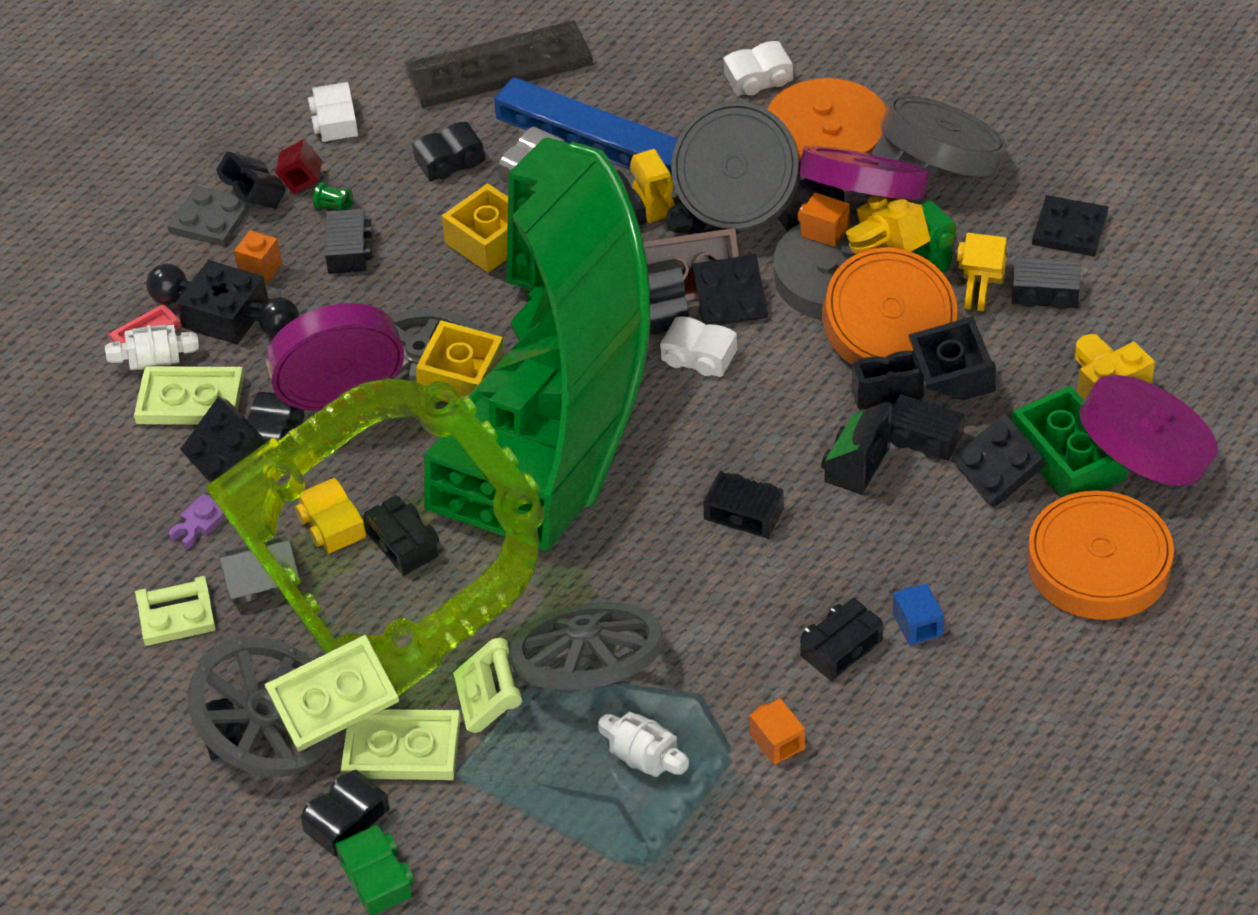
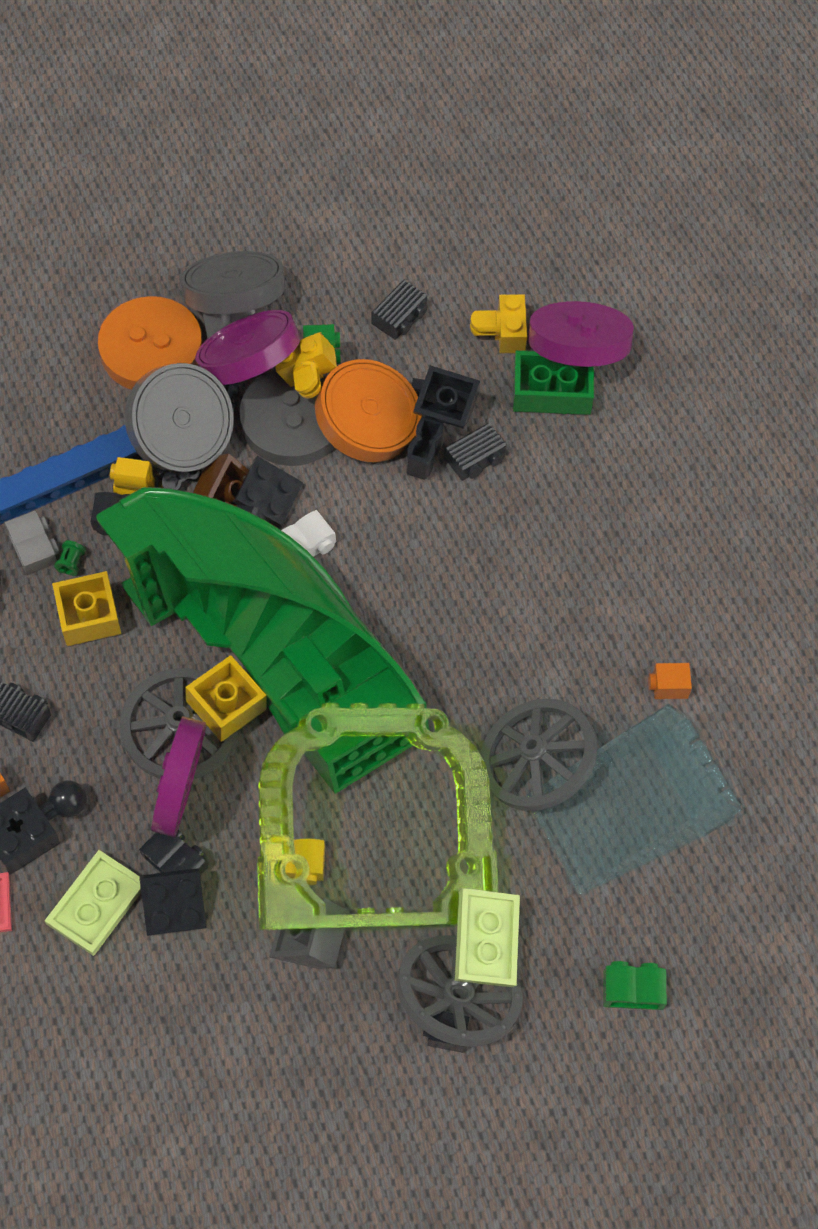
camera: 65 degrees left, 15 degrees up
(151, 347) = (29, 906): white piece -> none
(178, 619) = (318, 1016): yellowish green plate -> none
(200, 517) = (227, 952): medium lavender plate -> none
(344, 811) = (574, 982): black brick -> none
(401, 534) = (347, 821): black brick -> none
(403, 745) = (543, 914): yellowish green plate -> none
(477, 688) = (523, 843): yellowish green plate -> none
(643, 744) = (641, 764): white piece -> none
(744, 504) = (468, 593): black brick -> none
(758, 68) = (57, 349): white brick -> none
(824, 219) = (258, 396): orange brick -> none
(841, 638) = (619, 602): black brick -> none
(859, 449) = (473, 498): black slope -> none
(918, 614) = (627, 547): blue brick -> none
(982, 261) = (365, 333): yellow brick -> none
(999, 460) = (536, 427): black plate -> none
(1070, 225) = (353, 265): black plate -> none
(1100, 555) = (648, 422): orange brick -> none

